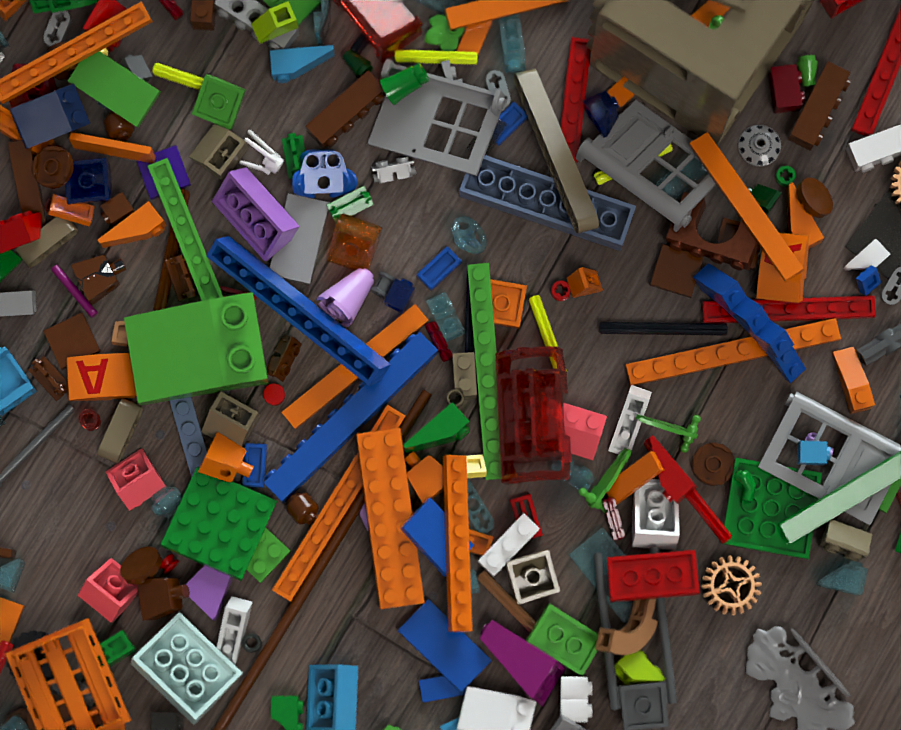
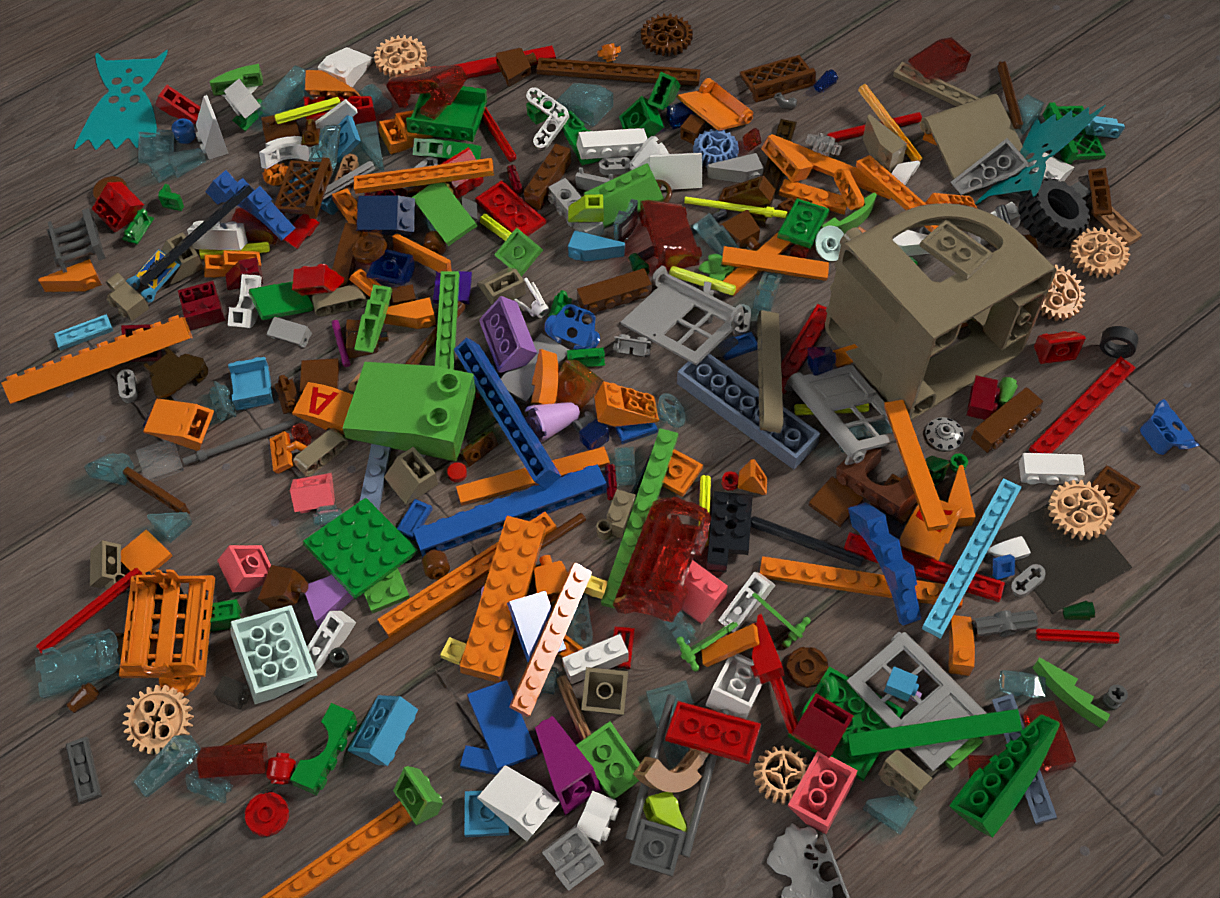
camera: 20 degrees right, 20 degrees down
(79, 446) = (281, 451): none -> orange plate
(102, 255) = (373, 319): none -> bright green slope
(140, 565) = (281, 555): reddish brown tile -> none
(169, 564) = (304, 566): red bush -> none
(181, 45) = (510, 209): none -> red tile
(181, 277) = (427, 353): reddish brown hinge -> none
(225, 460) = (390, 501): orange torso -> none
(321, 252) = (545, 378): none -> orange slope
(363, 590) = (453, 651): none -> light yellow plate
(404, 83) = (668, 284): green plant -> none
(418, 250) = (624, 406): none -> orange slope
(441, 430) = (577, 545): green slope -> none
(578, 362) = (728, 540): none -> black hinge
(613, 518) = (698, 676): axle -> none
(753, 527) = (822, 725): none -> dark red slope
(775, 588) = (822, 791): none -> coral slope
(815, 197) = (978, 484): reddish brown tile -> none
(835, 283) = (971, 559): none -> medium azure plate

